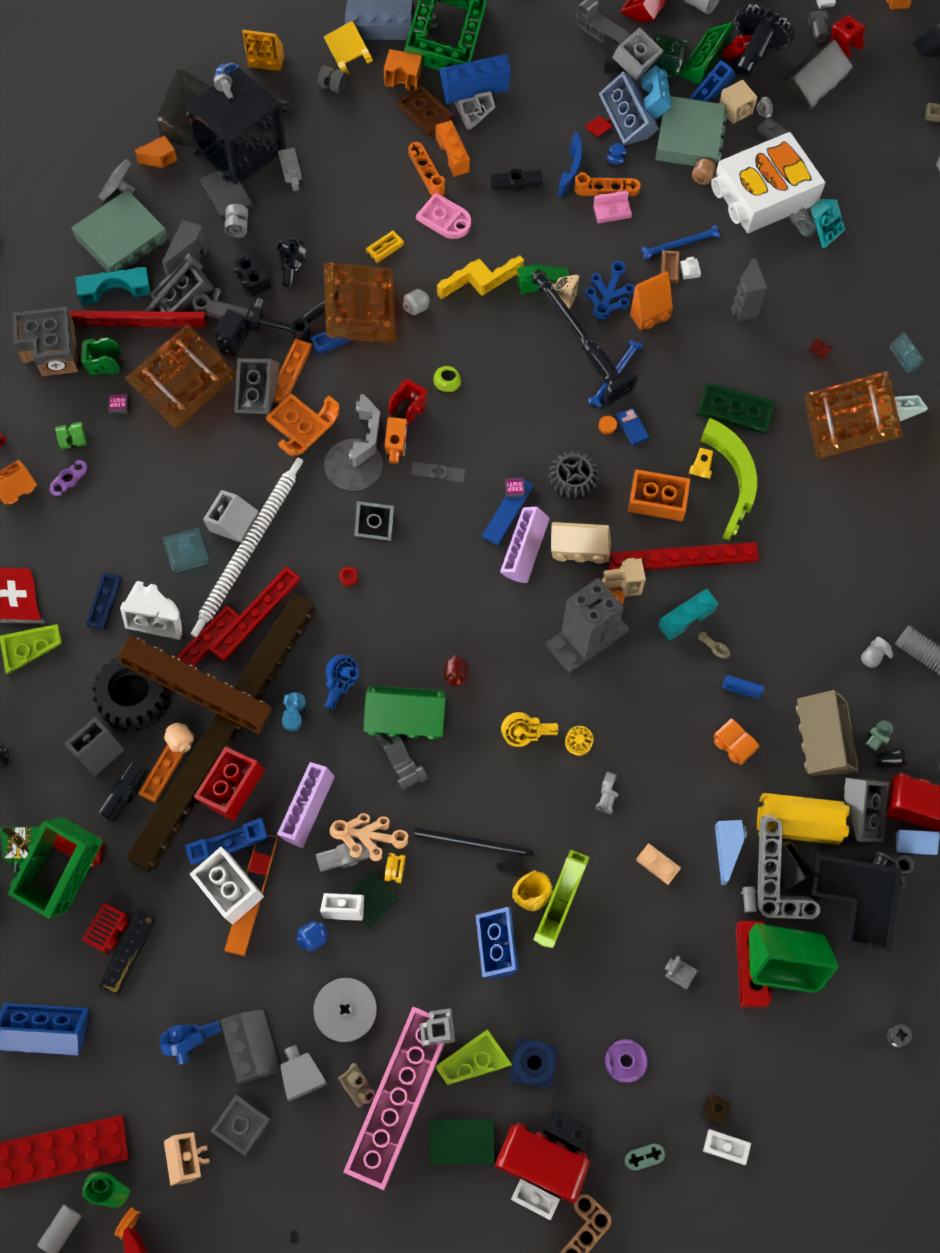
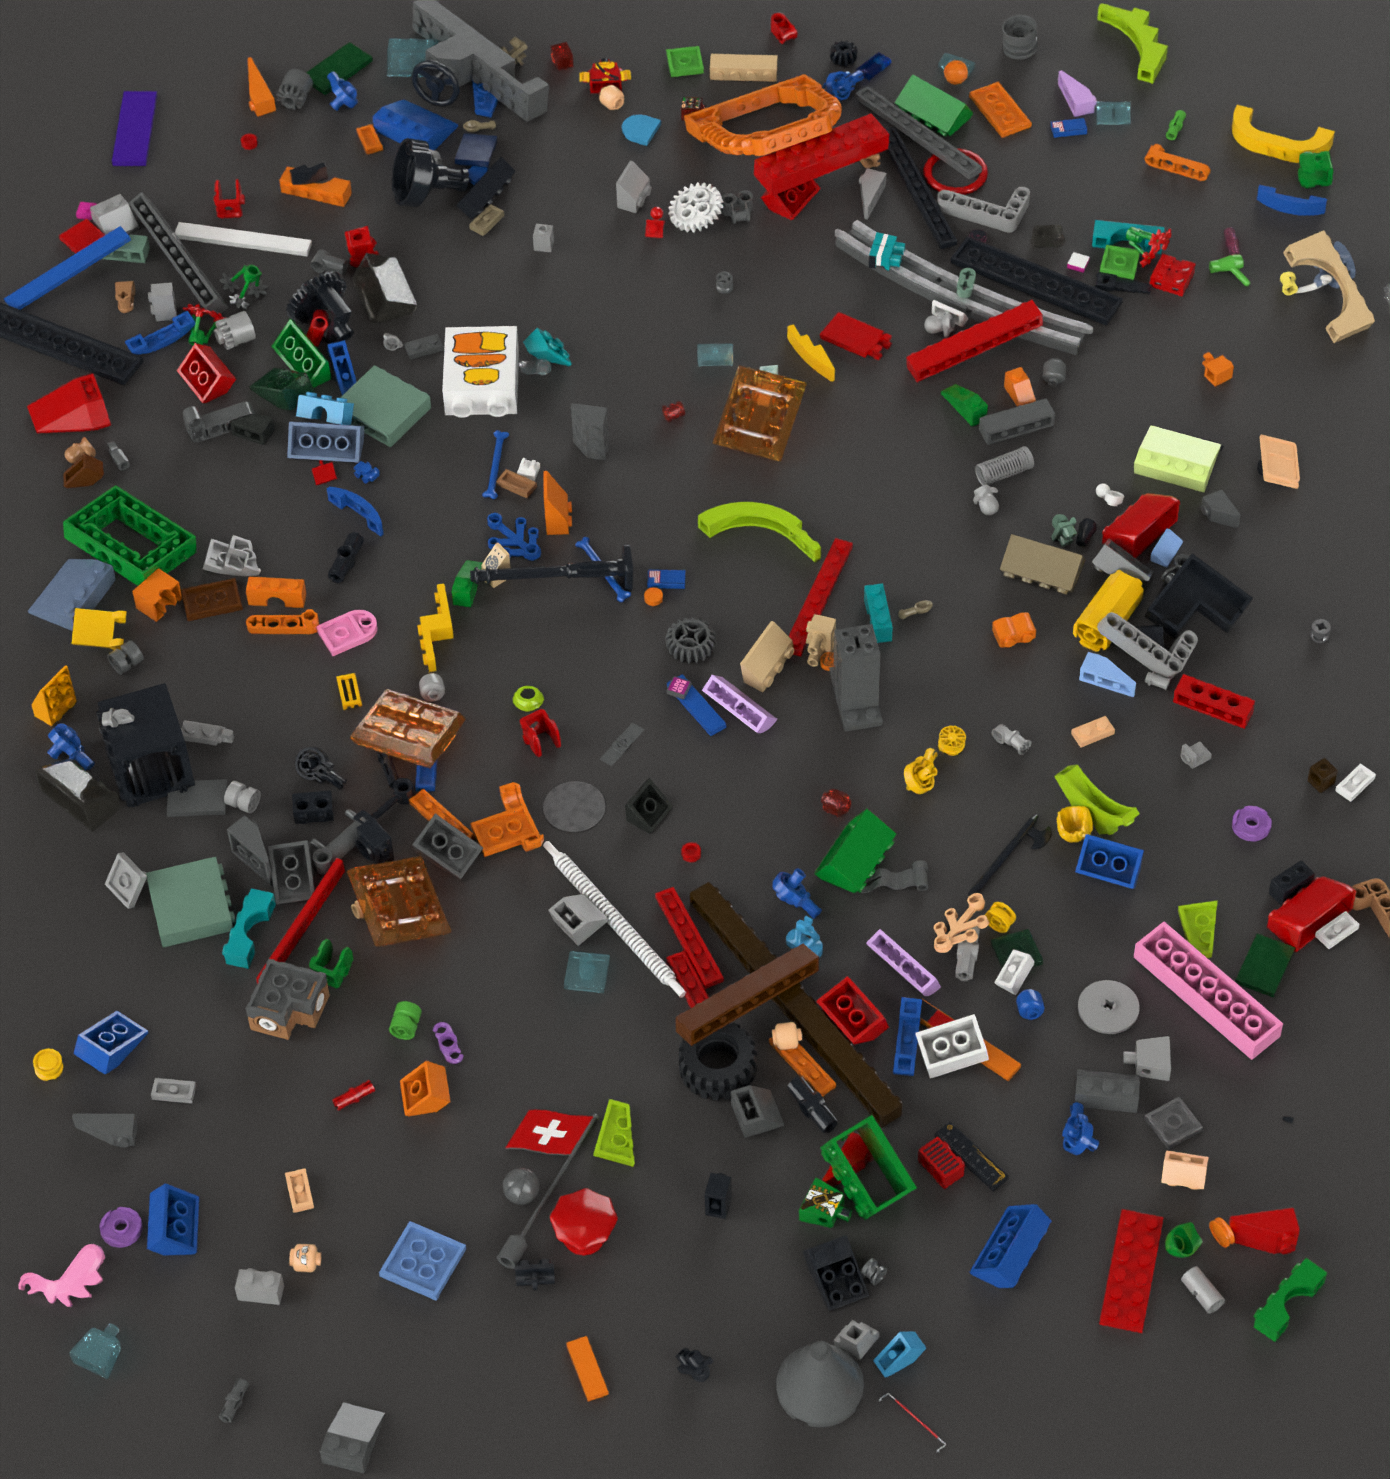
camera: 60 degrees left, 15 degrees down
(103, 601) = (602, 1058): dark blue tile -> none
(118, 403) = (389, 973): tile -> none
(151, 612) = (644, 1013): white piece -> none
(156, 153) = (113, 836): orange slope -> none
(191, 260) = (278, 841): dark grey piece -> none
(357, 1086) = (1181, 1017): dark tan hips -> none
(361, 450) = (526, 769): light grey slope -> none
(396, 439) = (574, 756): orange torso -> none
(438, 1028) = (1166, 926): light grey brick -> none
(476, 77) = (212, 537): blue slope -> none
(523, 1074) = (1226, 897): dark blue piece -> none
(582, 183) = (388, 509): orange beam -> none
(612, 207) = (424, 499): bright pink bracket -> none
(637, 53) = (278, 402): light grey slope -> none
(645, 1162) = (1341, 843): sand green beam -> none
(659, 495) = (751, 584): orange brick -> none
(702, 468) = (735, 541): yellow plate -> none
(703, 170) = (433, 413): medium nougat head -> none
(736, 408) = (693, 497): dark green tile -> none
(738, 101) = (375, 352): tan head -> none
(743, 687) = (966, 604): blue tile -> none
(790, 958) = (1224, 667): green windscreen -> none

